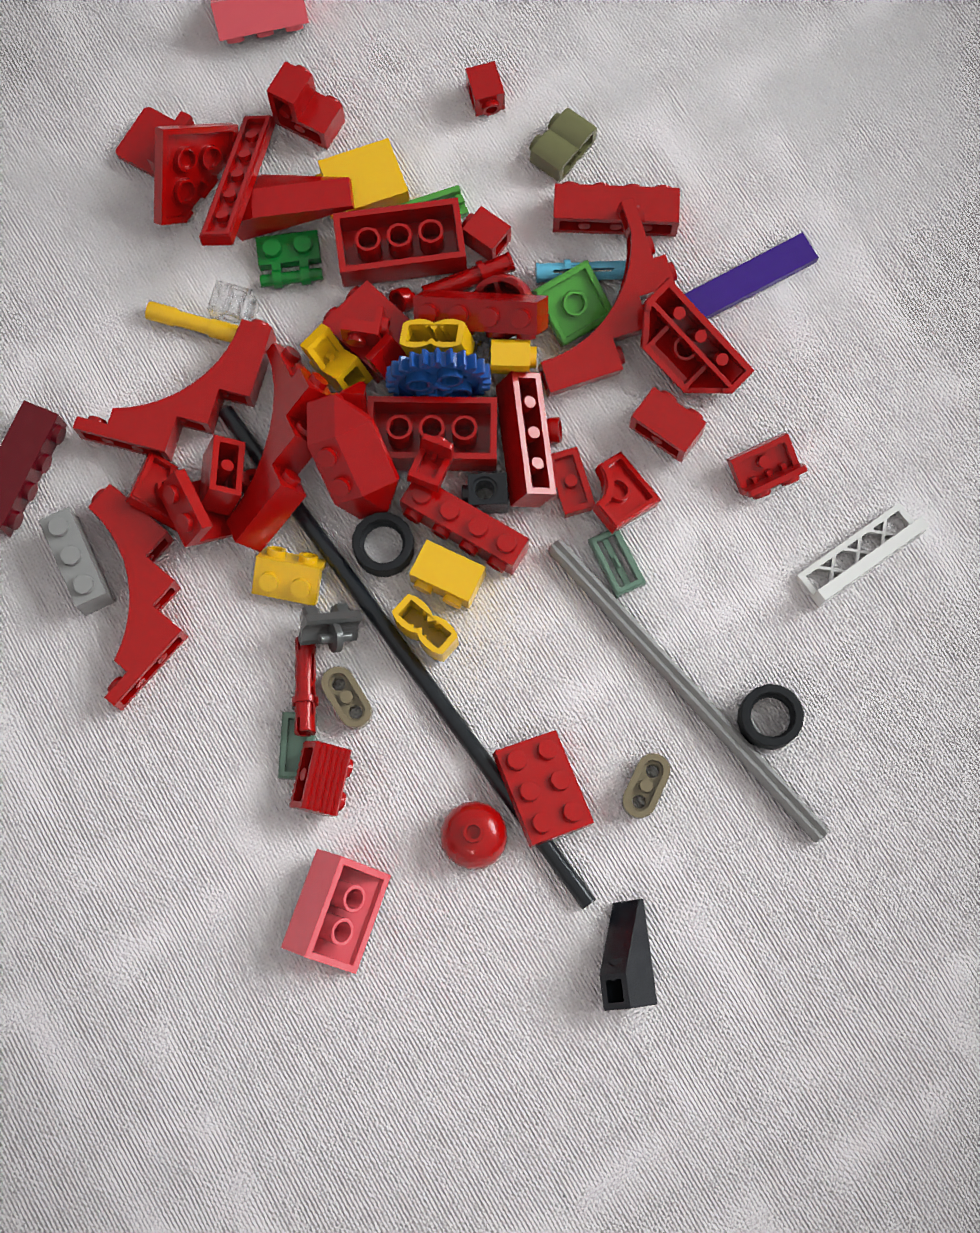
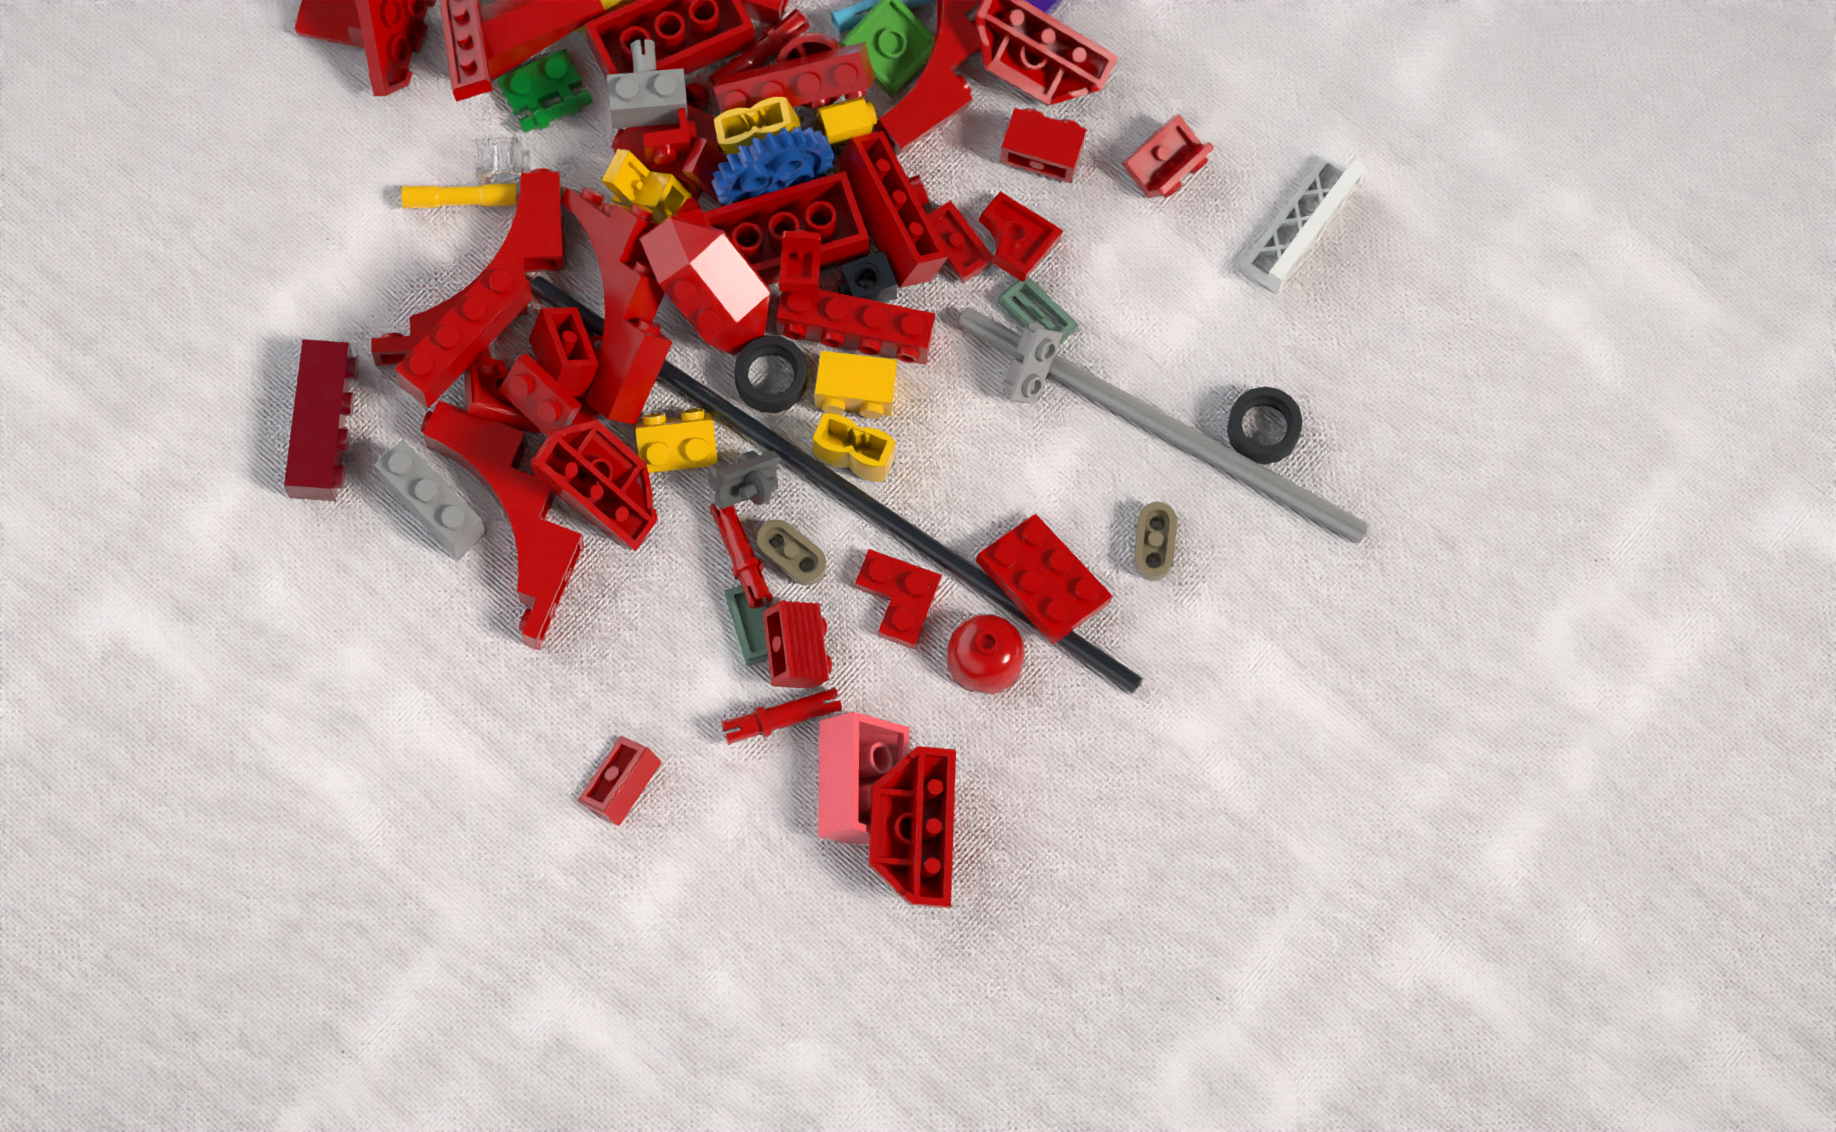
camera: 25 degrees left, 5 degrees down
(144, 436) = (463, 333): none -> red brick
(144, 842) = (620, 780): none -> red slope
(209, 588) = (598, 480): none -> red wedge
(289, 832) = (764, 721): none -> red pin
(358, 971) = (915, 827): none -> red wedge
(359, 285) = (647, 94): none -> light grey brick
(431, 760) = (908, 590): none -> red plate
(588, 613) = (1027, 378): none -> light grey hinge
(627, 961) = (1199, 726): black slope -> none

